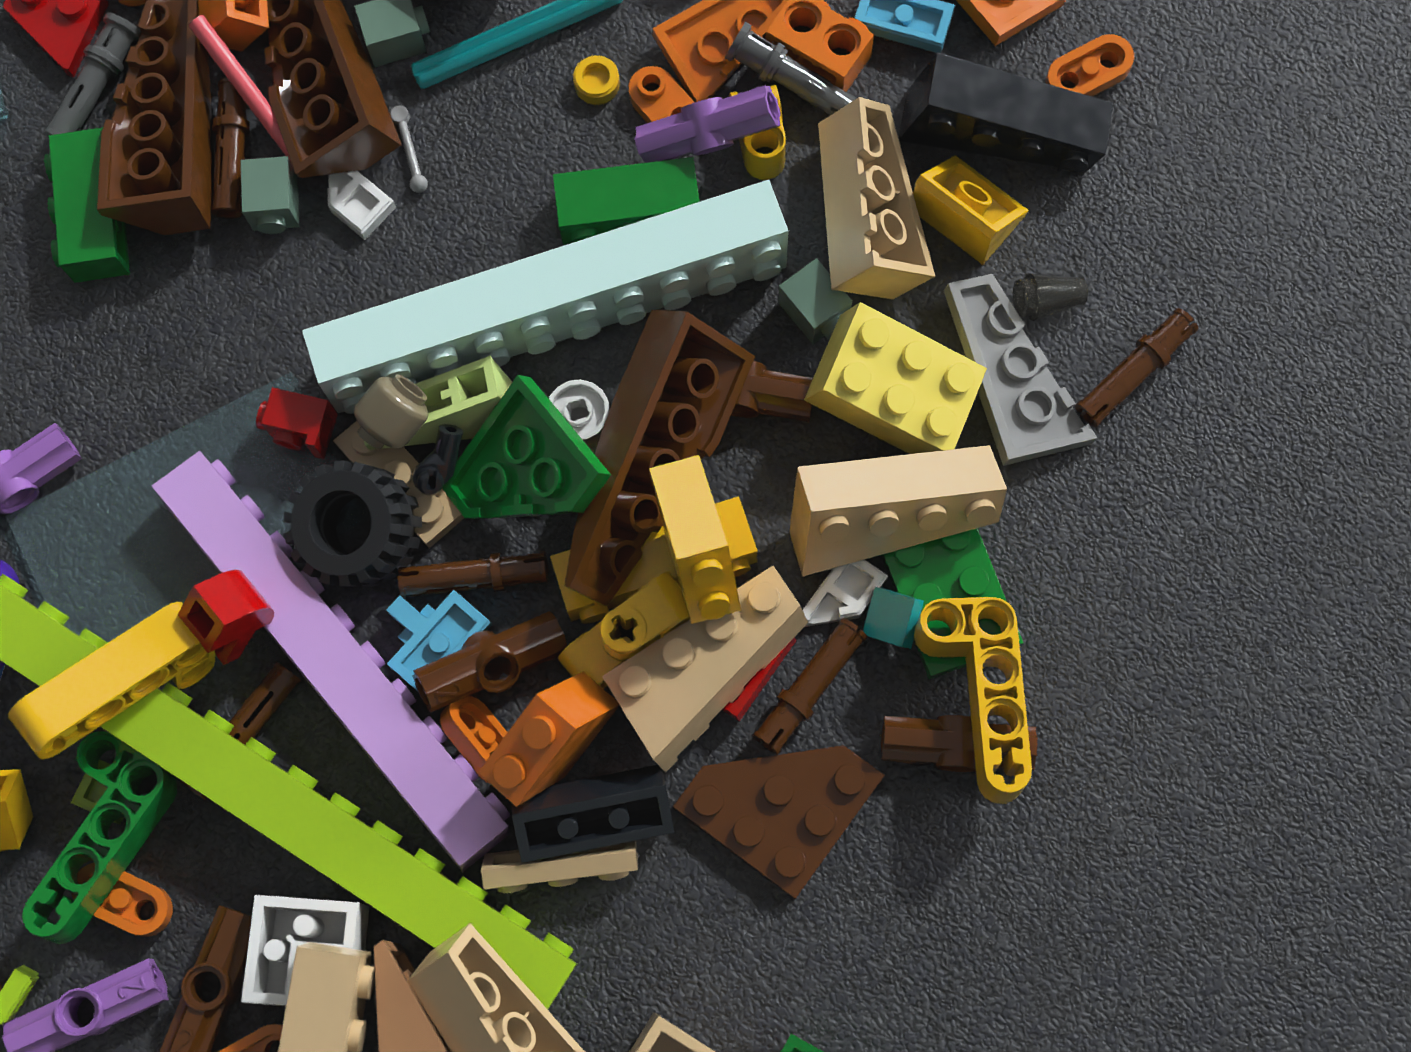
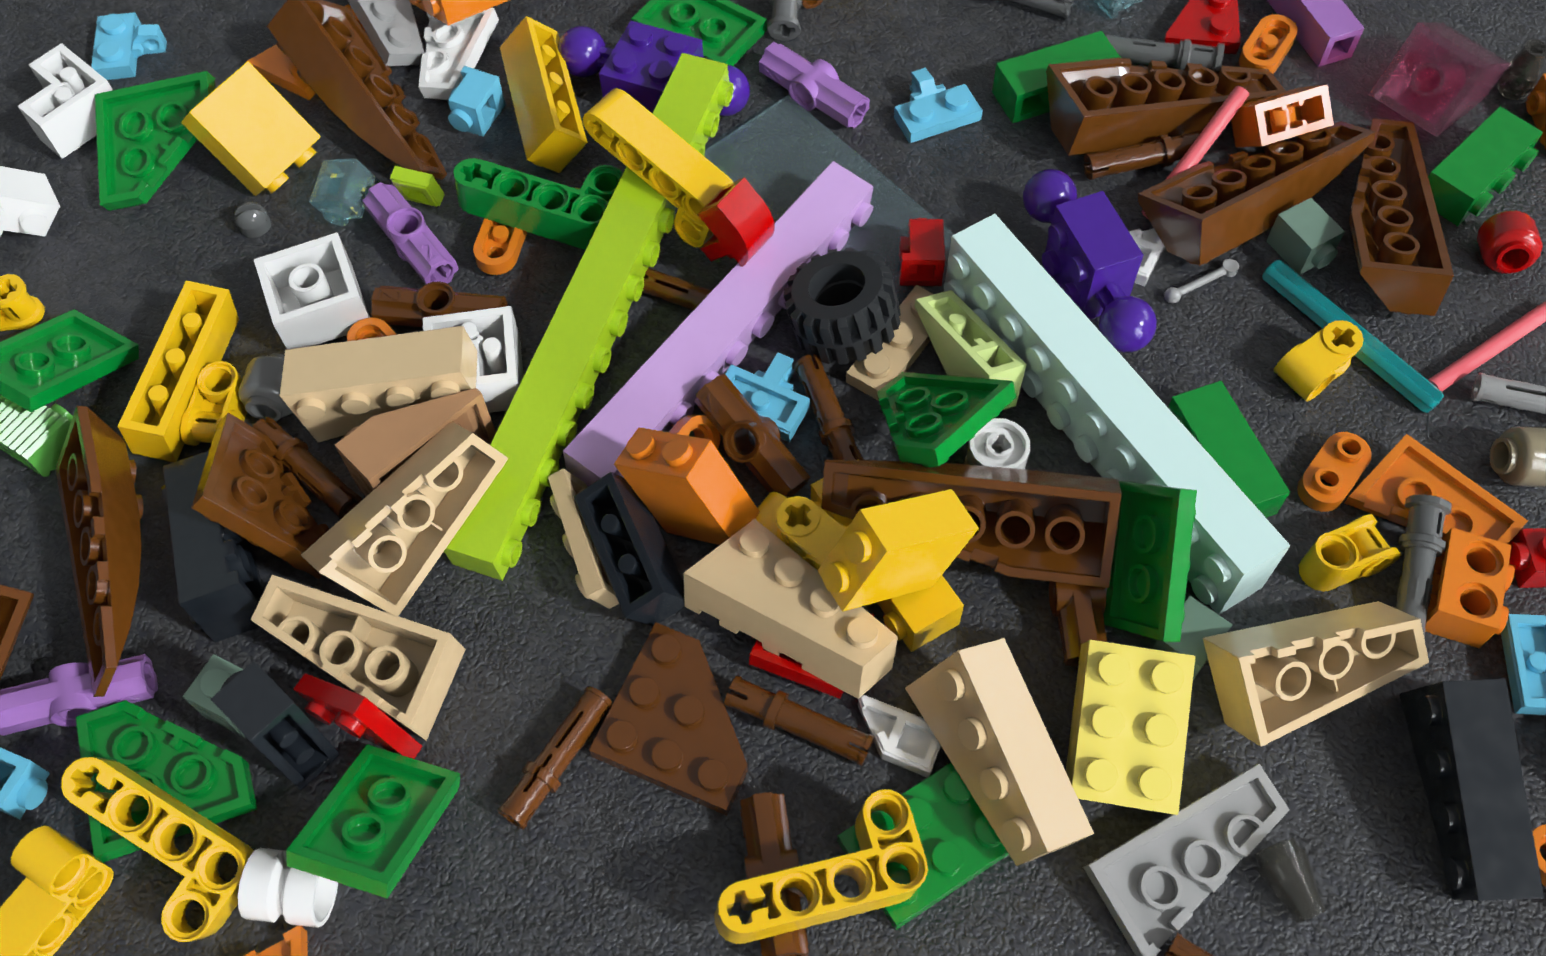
camera: 75 degrees right, 15 degrees down
(84, 353) = (934, 108): none -> medium azure hinge
(270, 194) = (1120, 181): sand green brick -> none
(364, 251) = (1091, 257): none -> dark purple brick
(391, 412) = (947, 299): dark tan head -> none
(440, 463) = (918, 359): black arm -> none
(546, 75) = (1320, 359): none -> yellow piece
(596, 80) = (1334, 408): yellow tile -> none
(708, 125) = (1329, 495): medium lavender piece -> none
(747, 306) = (1151, 560): none -> green plate
(839, 977) = (543, 774): none -> reddish brown pin
(892, 617) = (890, 774): teal tile -> none
(967, 207) = (1355, 771): yellow slope -> none

